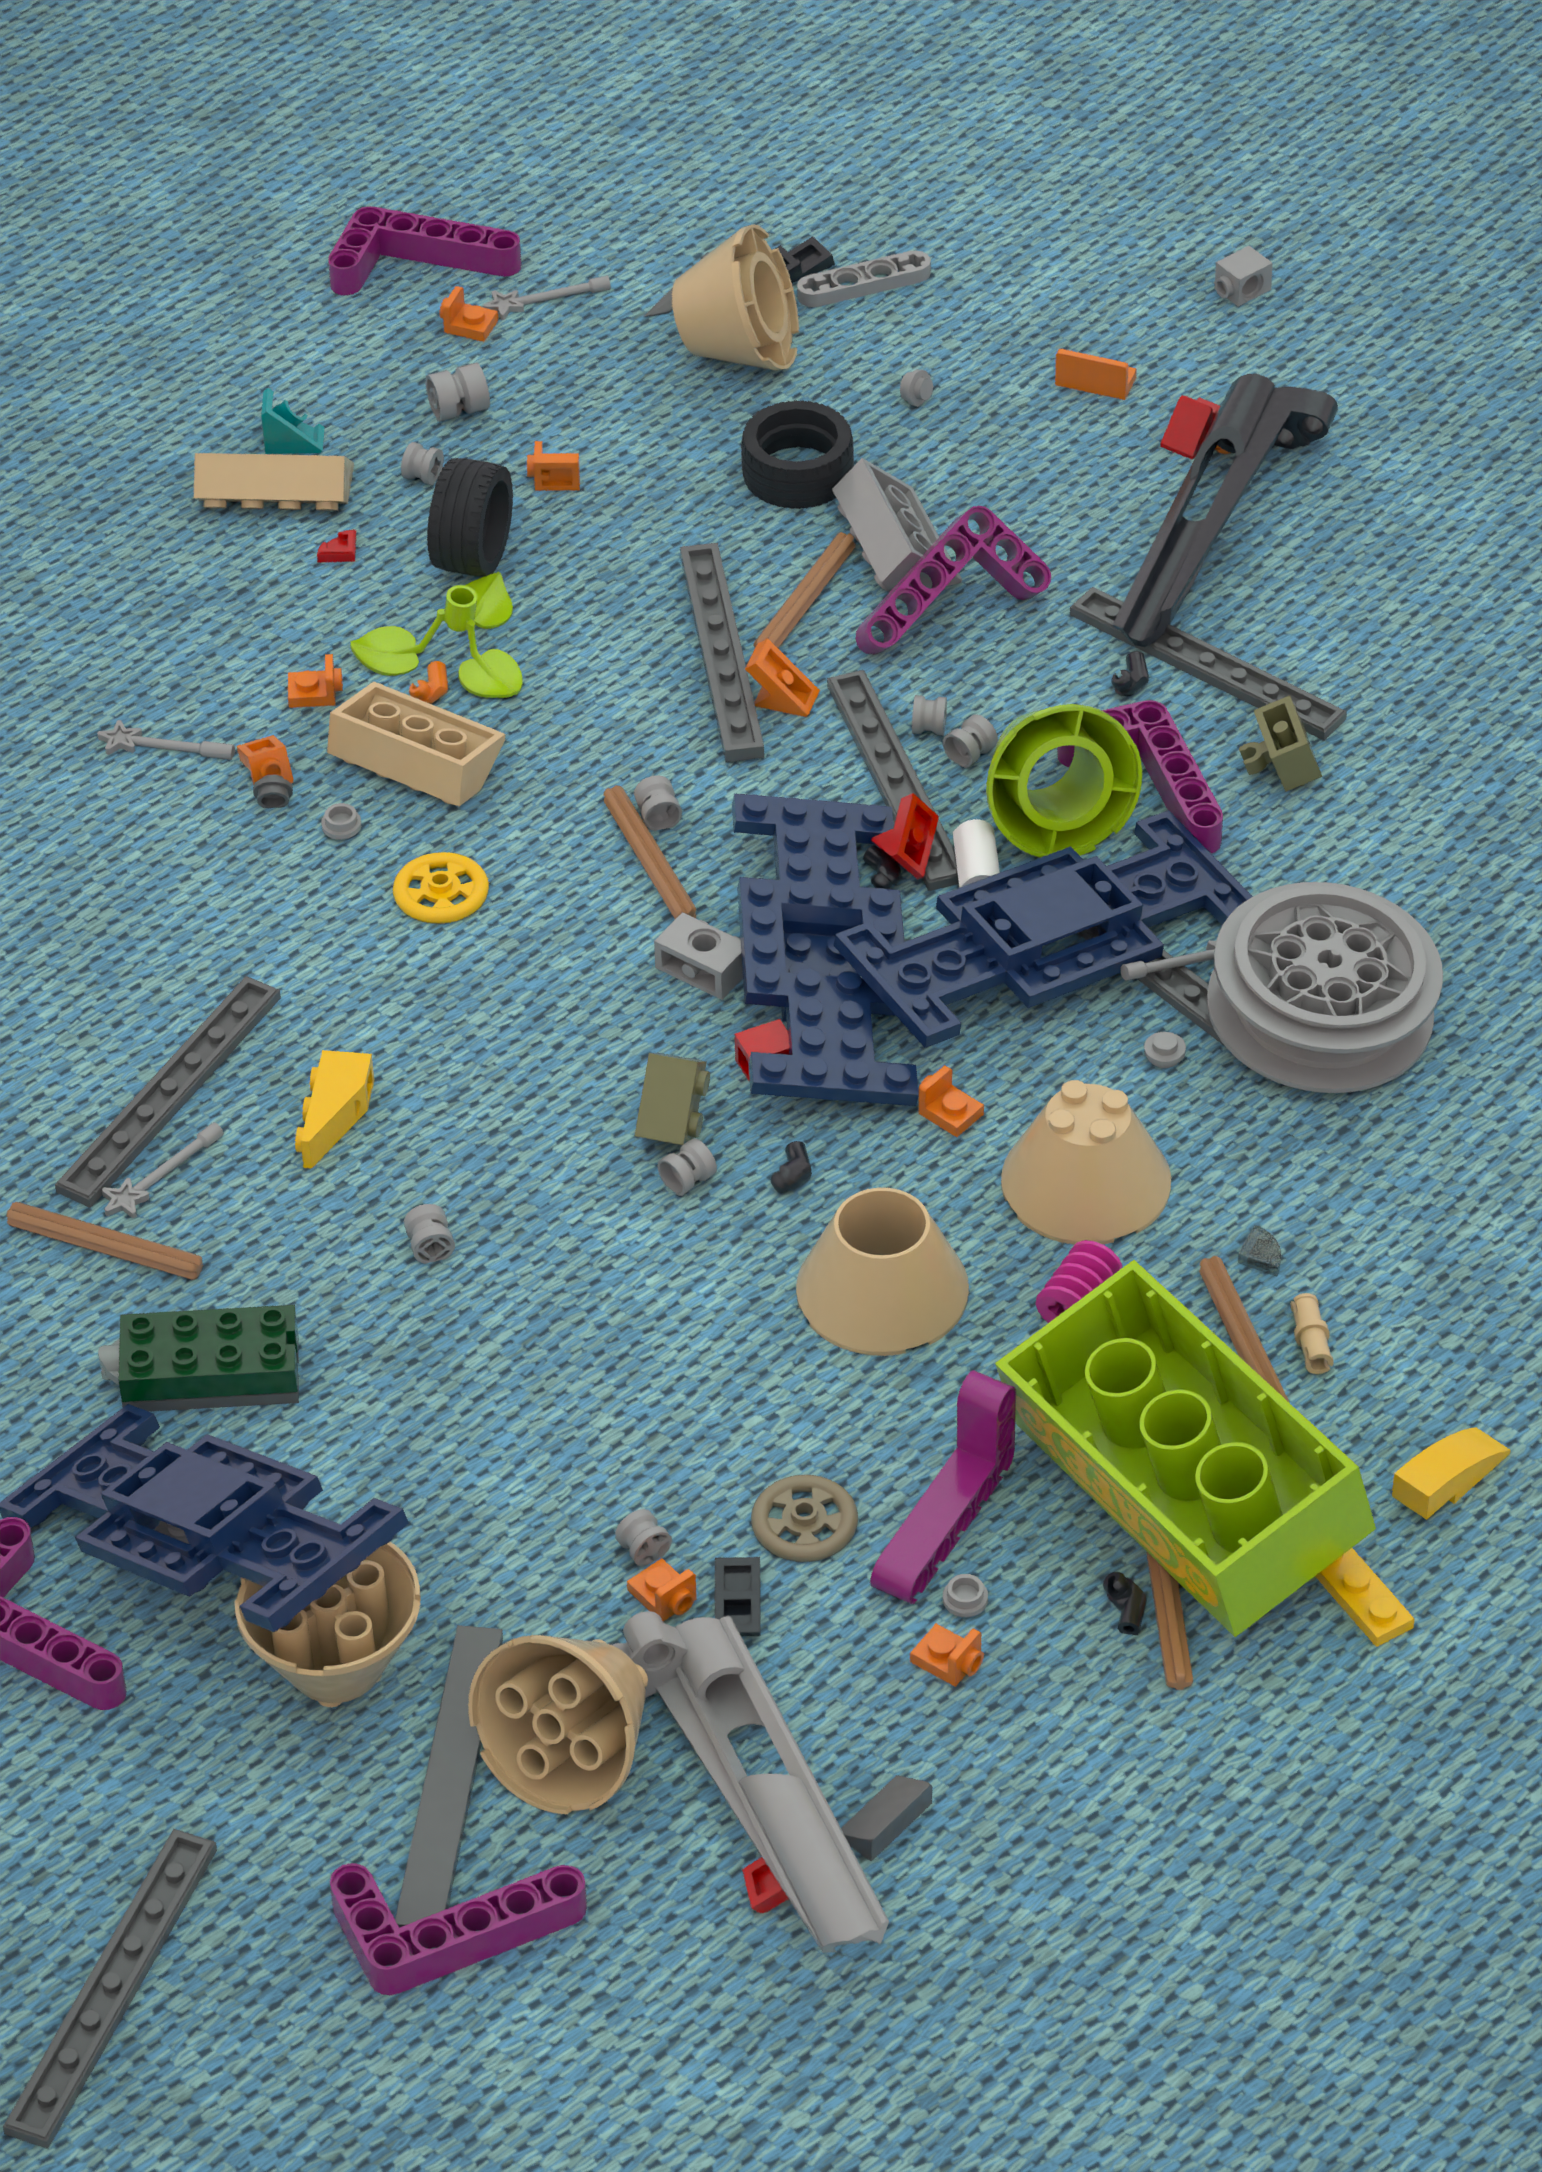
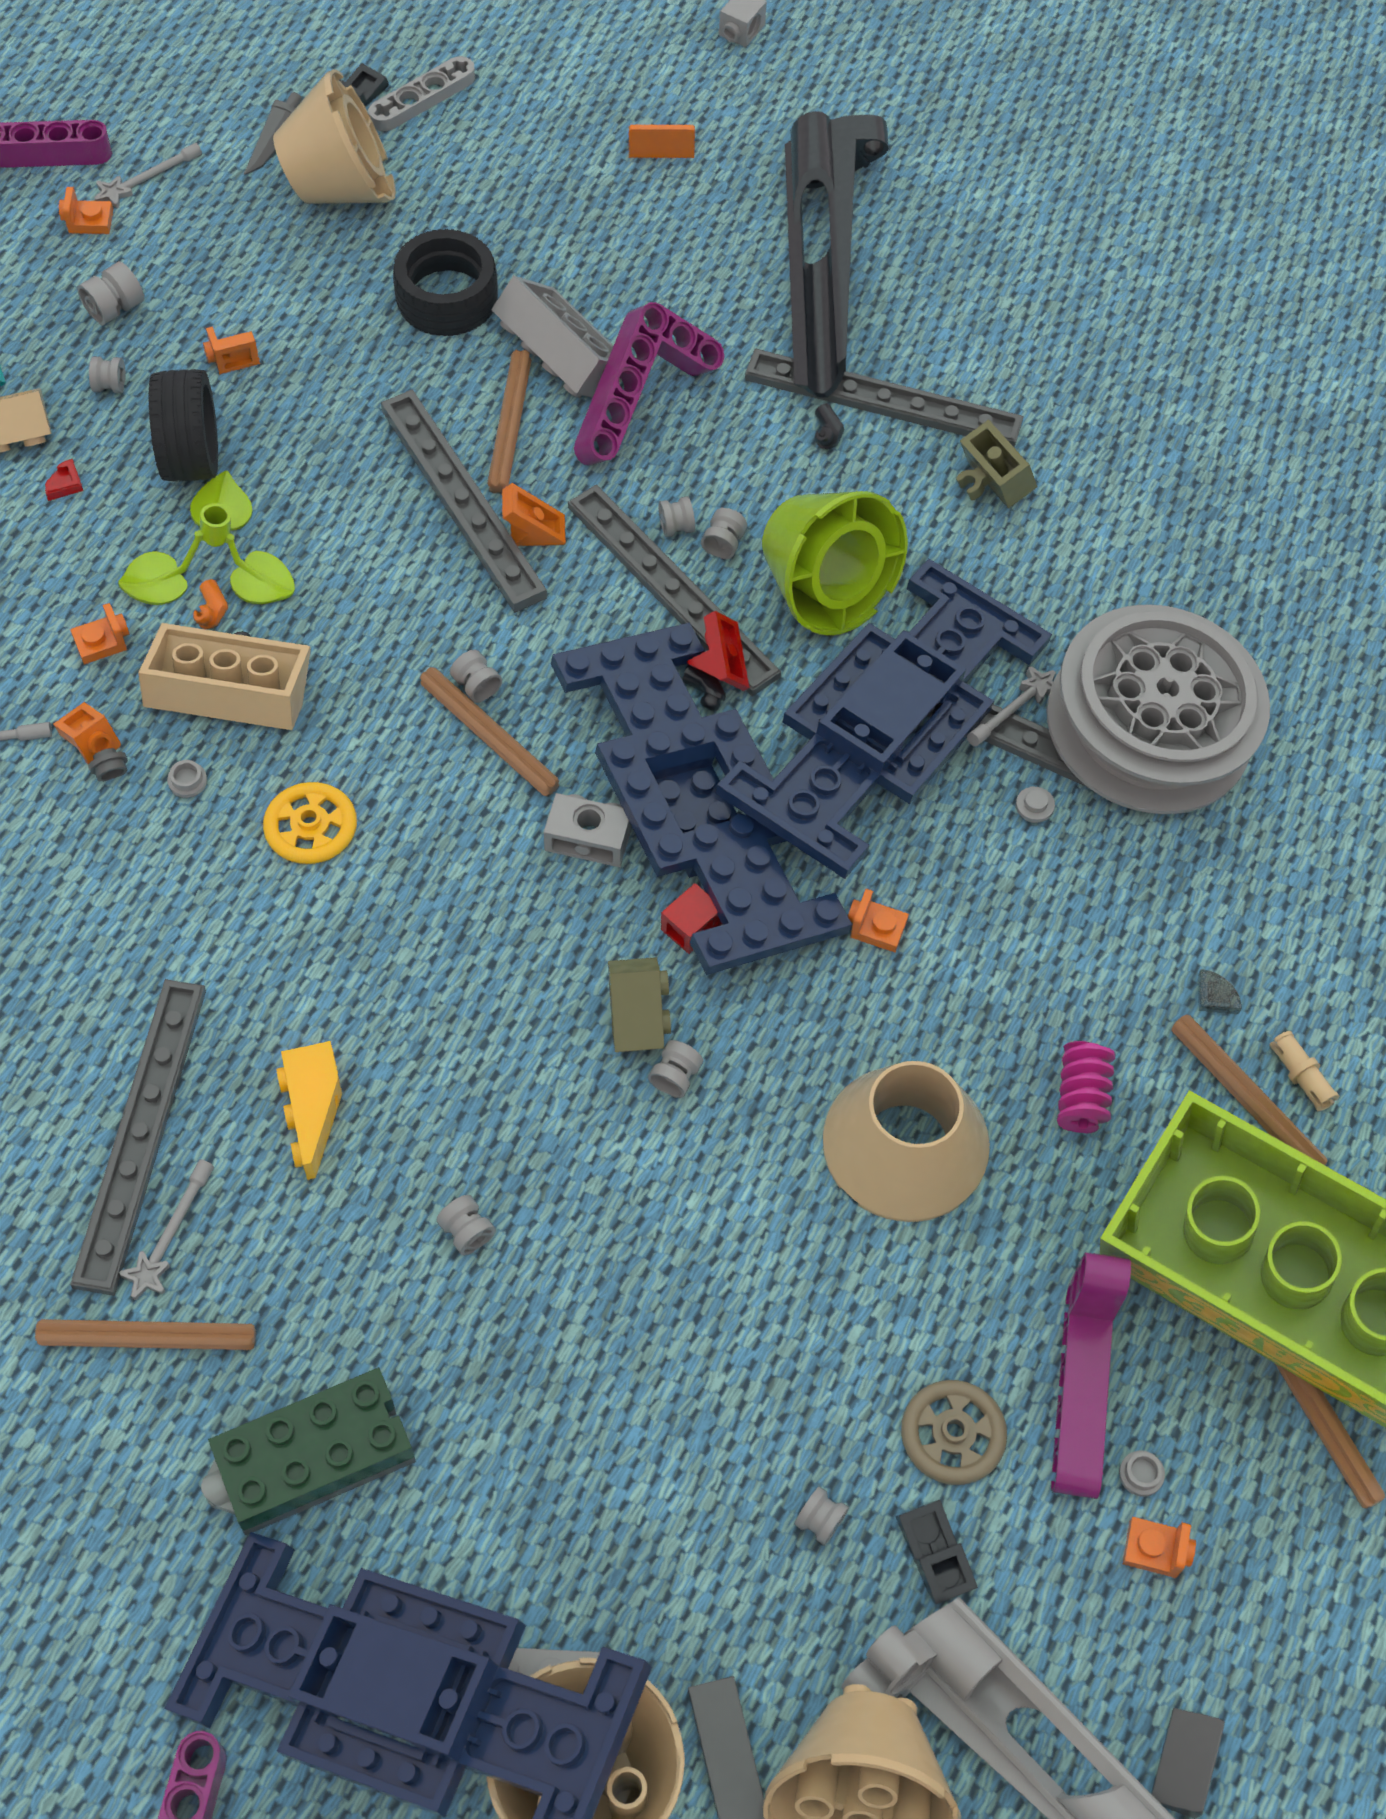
camera: 25 degrees left, 15 degrees up
(664, 1589) = (864, 1568): orange bracket -> none
(795, 1171) = (773, 1039): black arm -> none
(916, 387) = (516, 189): light grey plate -> none
(975, 851) = (786, 654): white brick -> none
(1086, 1168) = (1030, 963): tan cone -> none
(1128, 1600) = (1288, 1424): black arm -> none
(1169, 767) = (927, 528): magenta beam -> none
(1189, 426) = (765, 171): red slope -> none

